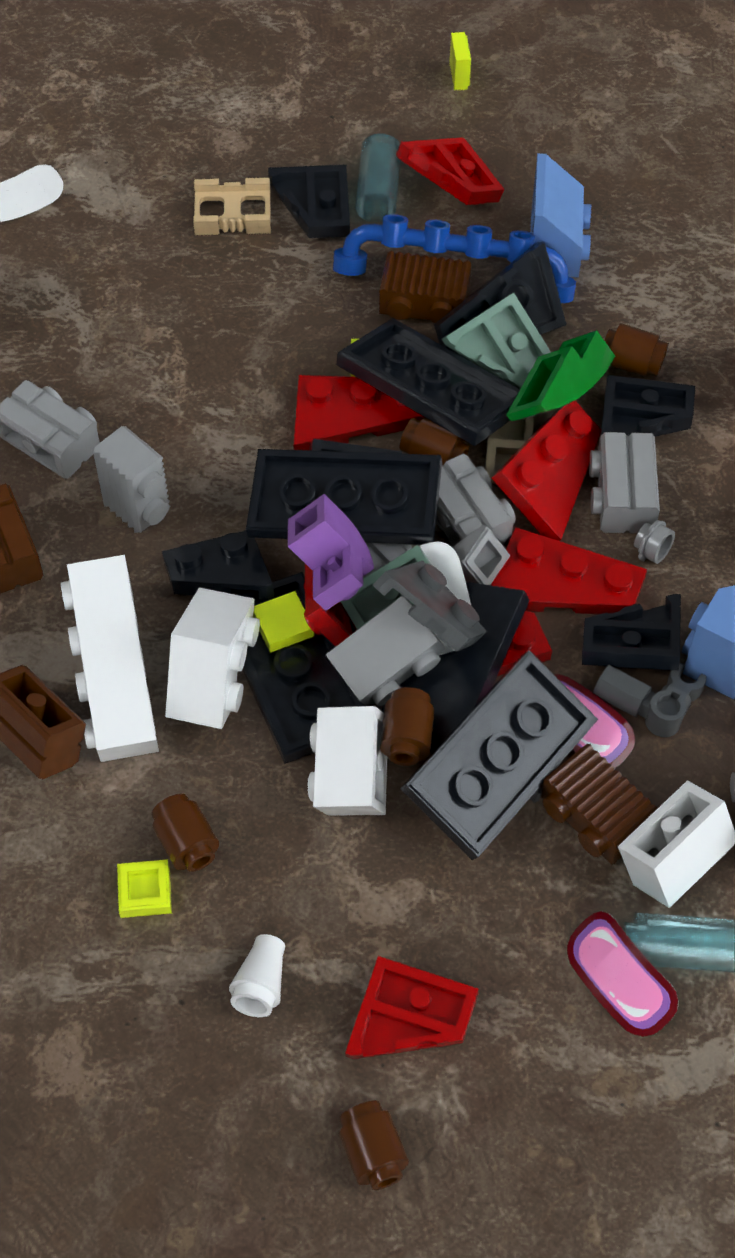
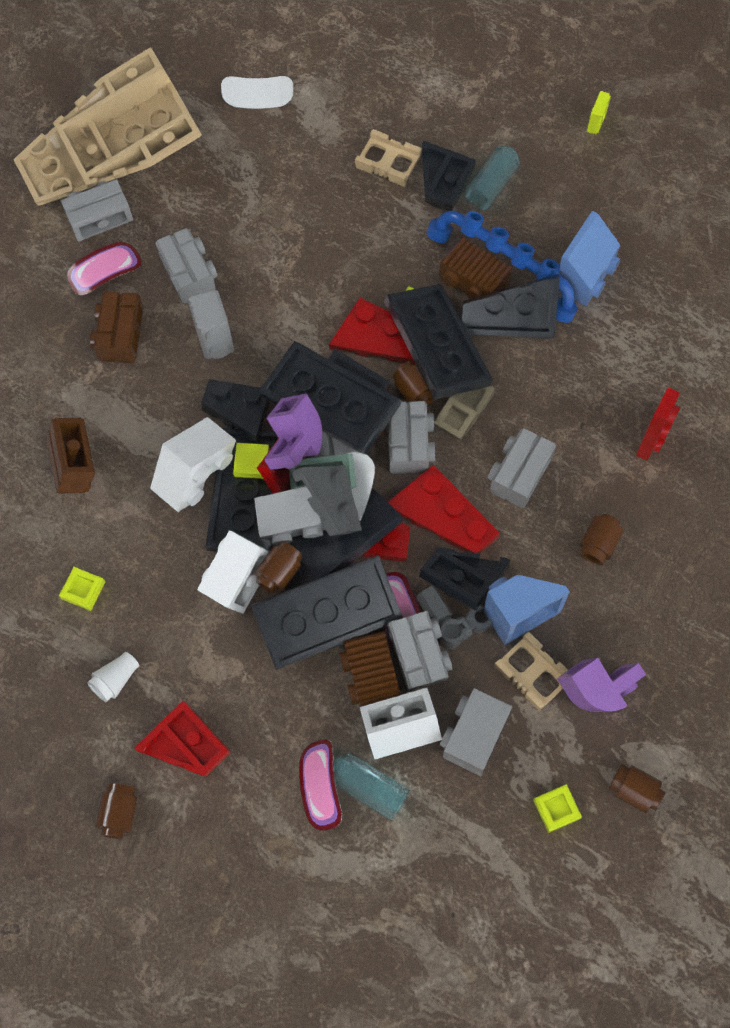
camera: 30 degrees right, 10 degrees up
(111, 659) = (136, 436): white wedge -> none
(184, 833) = (120, 567): reddish brown brick -> none
(453, 167) = (545, 192): red wing -> none
(481, 556) = (394, 476): light grey slope -> none
(500, 341) = (499, 335): sand green wing -> none
(550, 469) = (478, 435): red wing -> none
(562, 376) = (520, 376): green slope -> none
(636, 350) = (586, 377): reddish brown brick -> none
(643, 747) = (419, 651): none -> light grey brick
(646, 406) = (567, 421): black wing -> none
(654, 541) = (516, 516): light grey plate -> none

